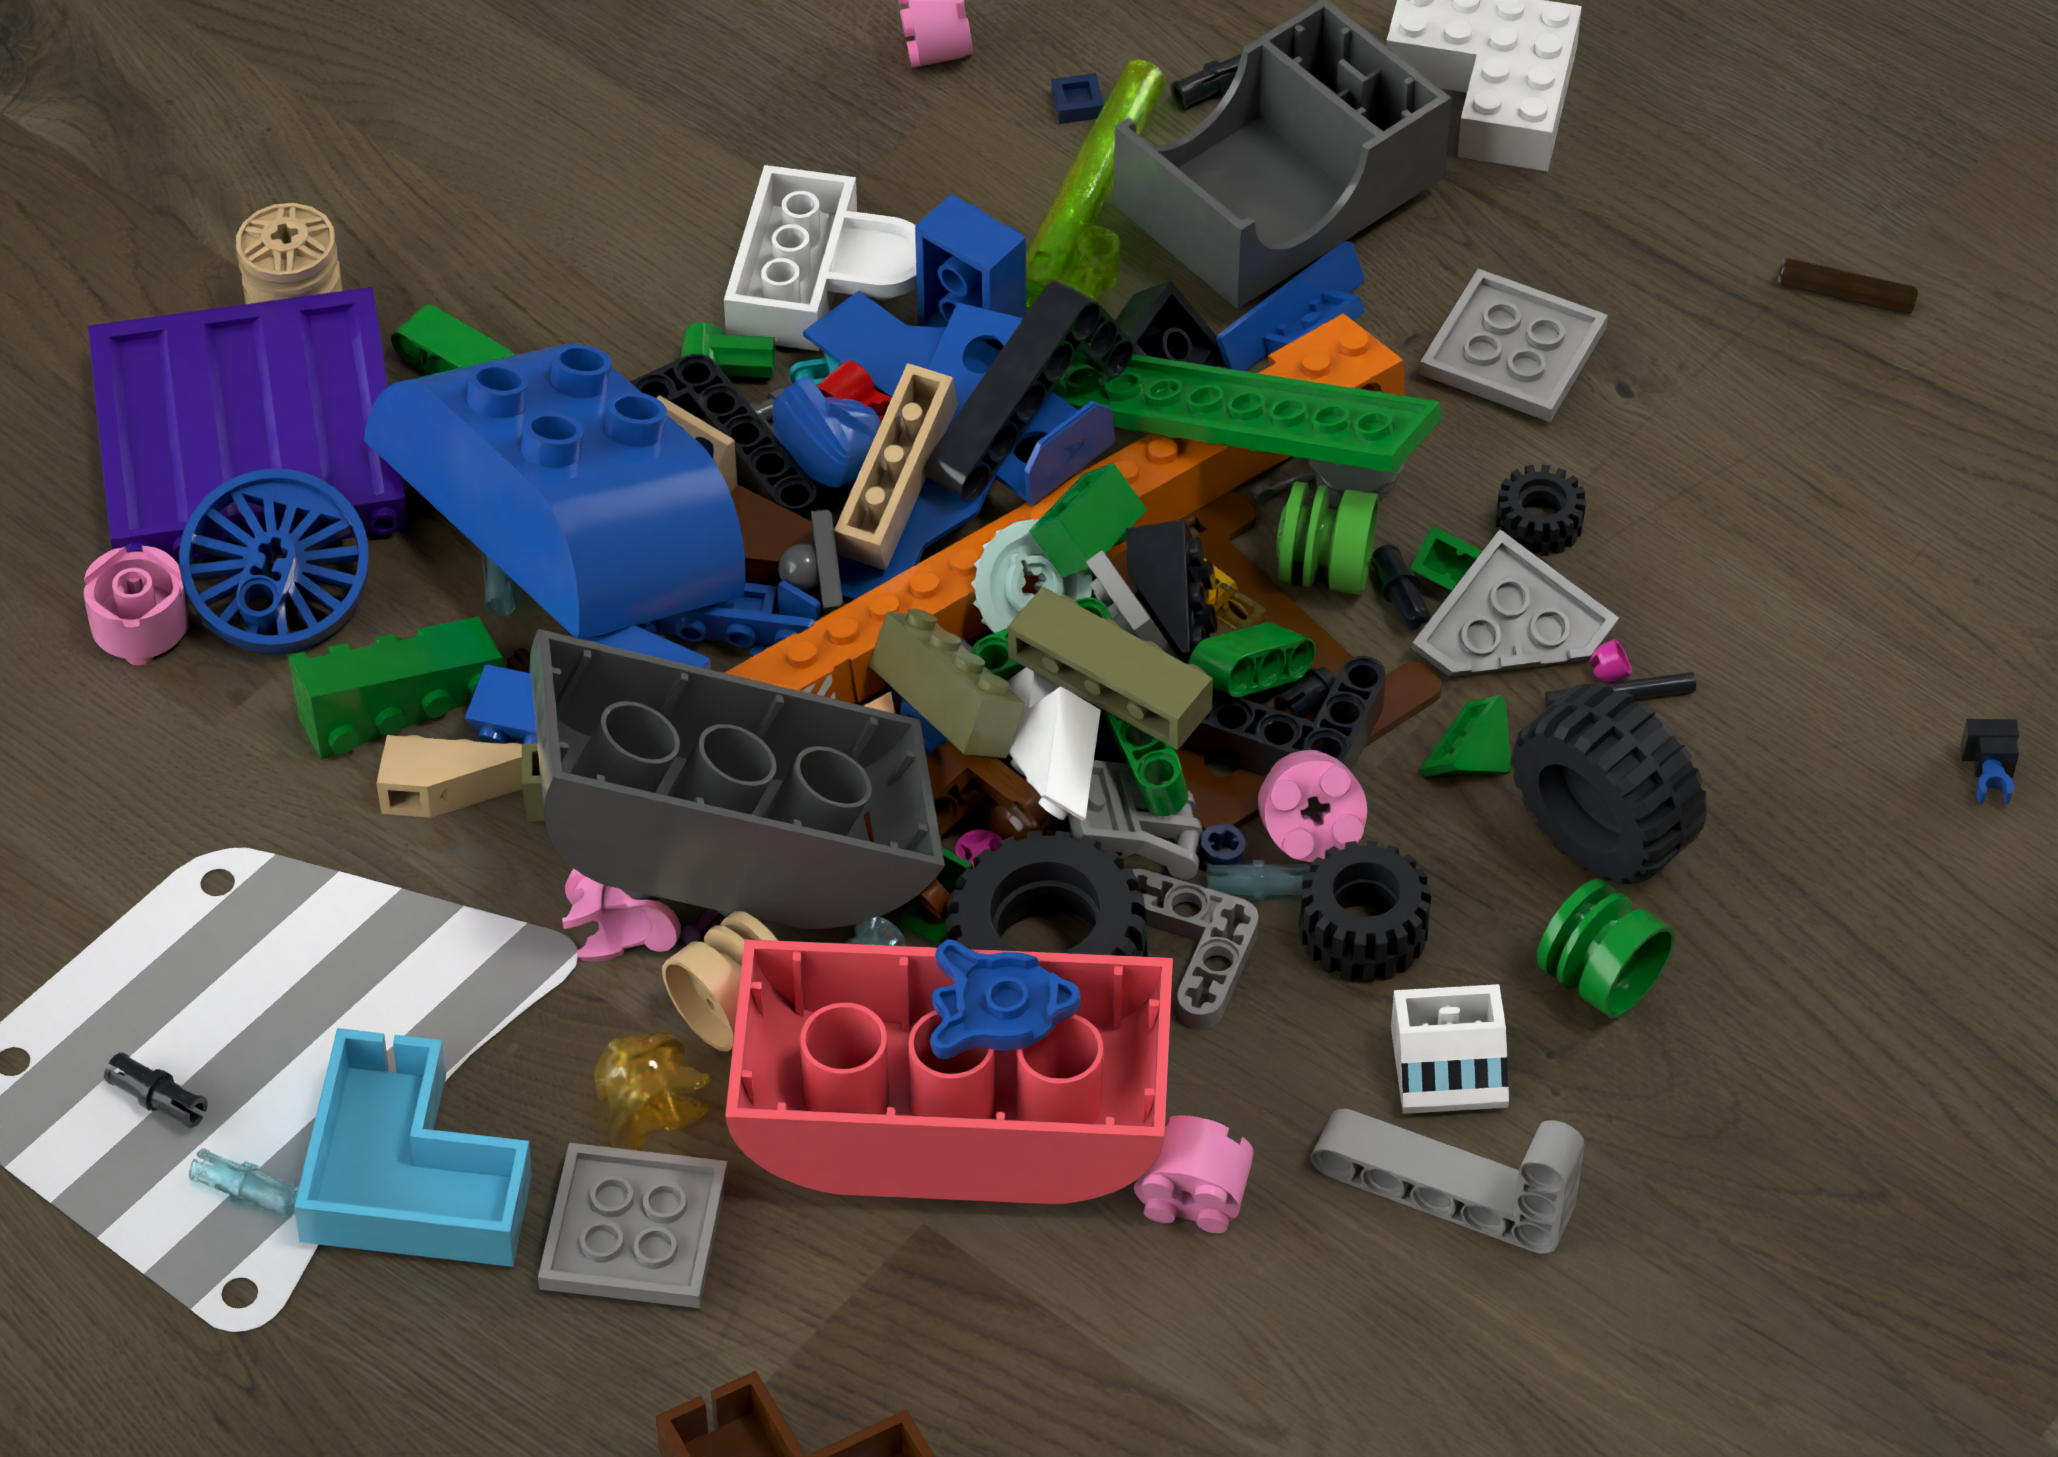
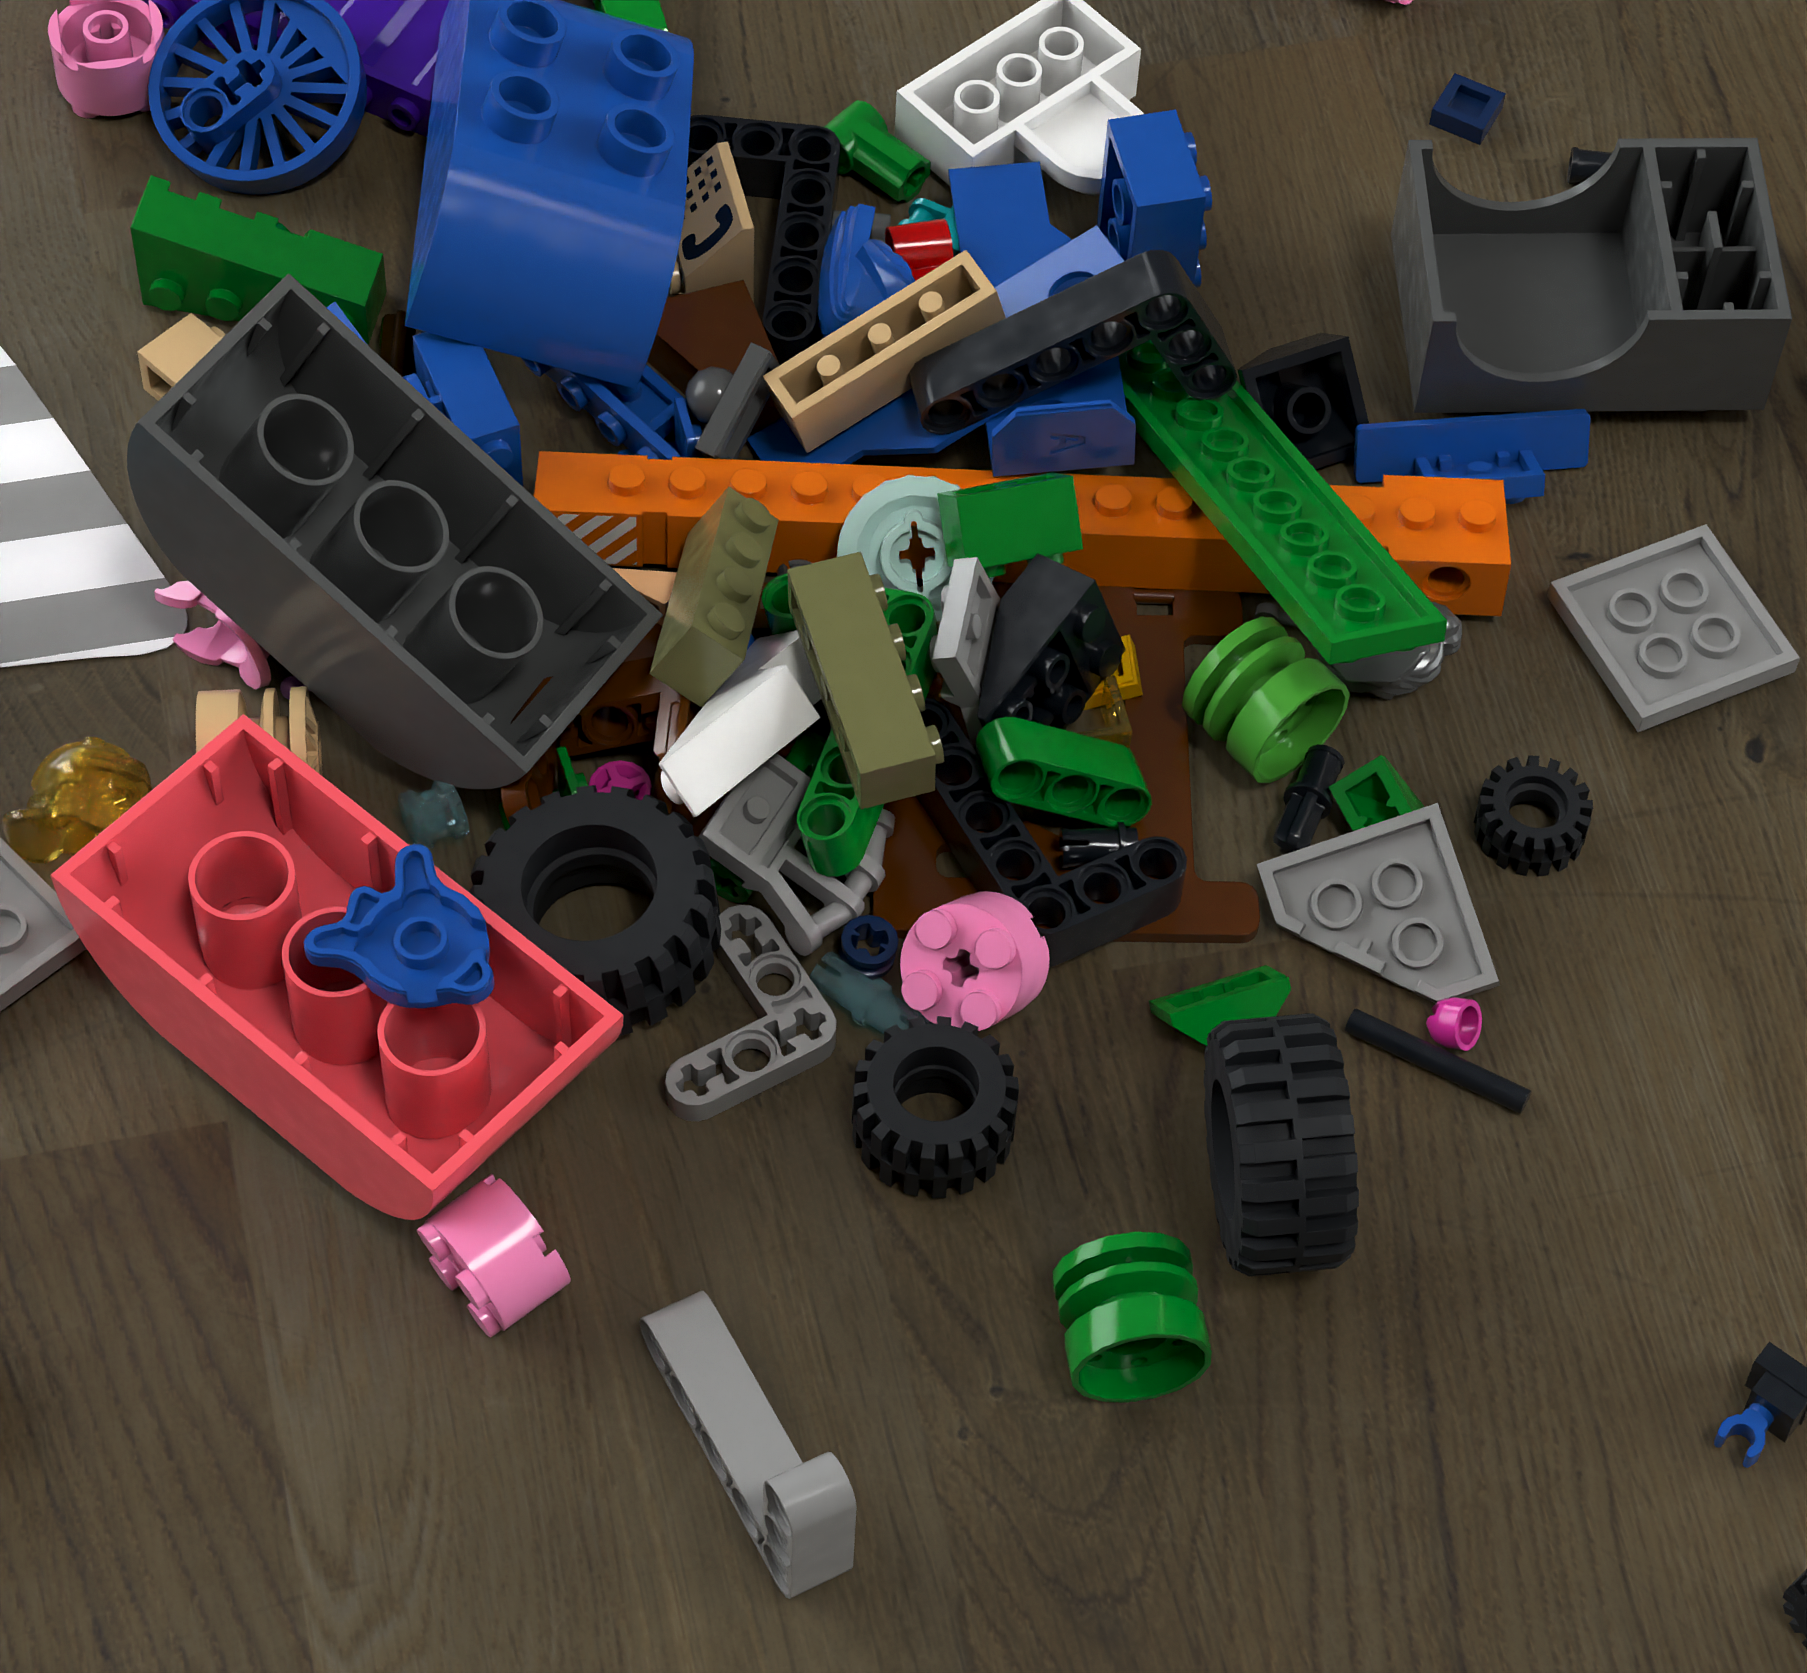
camera: 35 degrees right, 5 degrees up
(1067, 241) = (1302, 255): clear neon green piece -> none
(1450, 1048) = (878, 1310): white slope -> none

